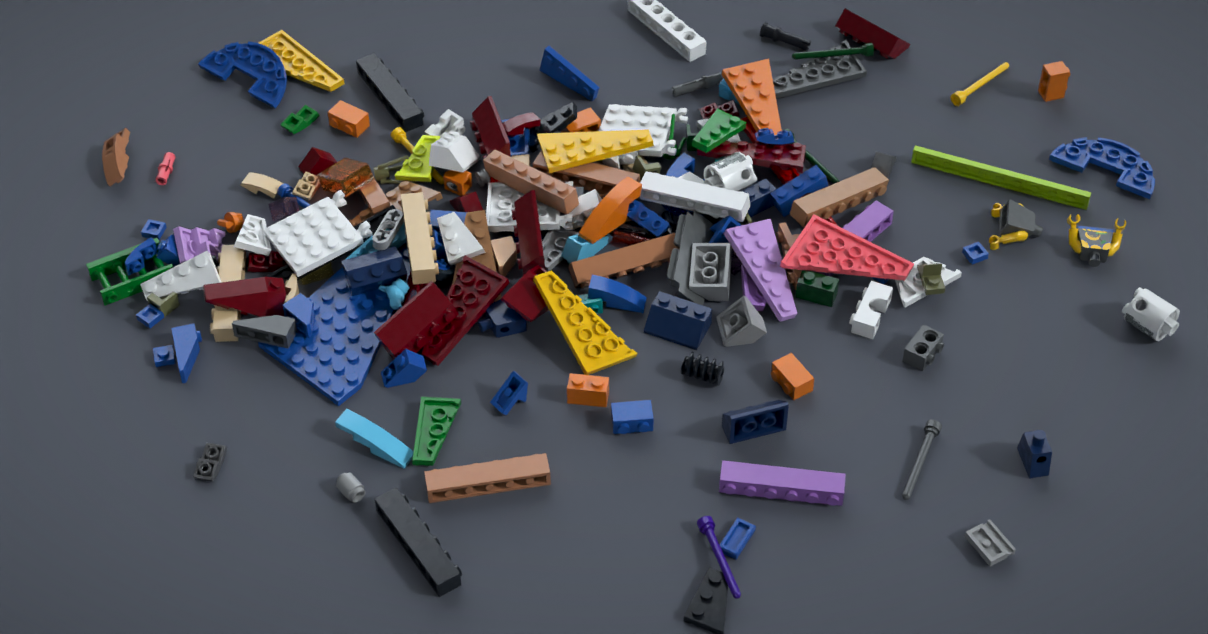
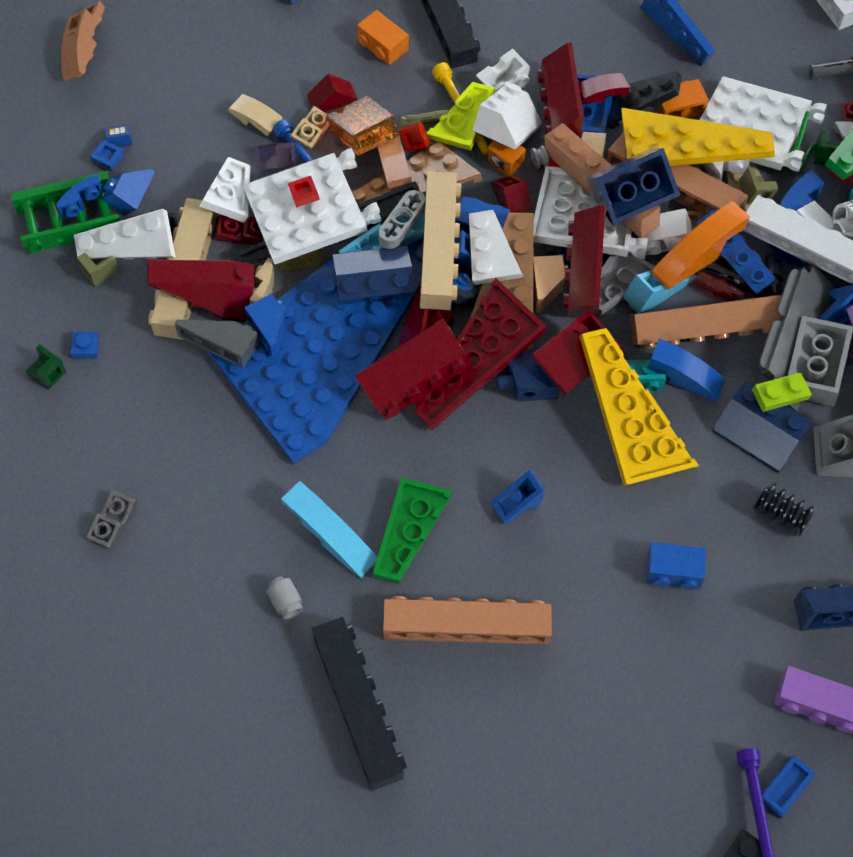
camera: 10 degrees right, 15 degrees up
(139, 374) = (46, 368): none -> dark green panel
(150, 316) = (78, 283): blue plate -> none
(160, 215) = (119, 135): none -> blue slope
(165, 168) = (136, 74): coral pin -> none
(187, 348) = (114, 342): slope -> none
(196, 241) = (157, 189): lavender slope -> none
(232, 222) = (207, 163): orange piece -> none
(301, 120) = (322, 28): green slope -> none
(310, 222) = (303, 191): none -> red plate
(386, 179) = (414, 137): none -> red plate
(396, 293) = (395, 315): medium azure animal -> none
(404, 369) = (386, 429): blue slope -> none
(554, 175) = (634, 185): none -> dark blue slope
(588, 390) = (623, 512): orange brick -> none
(686, 292) = (781, 392): none -> lime plate

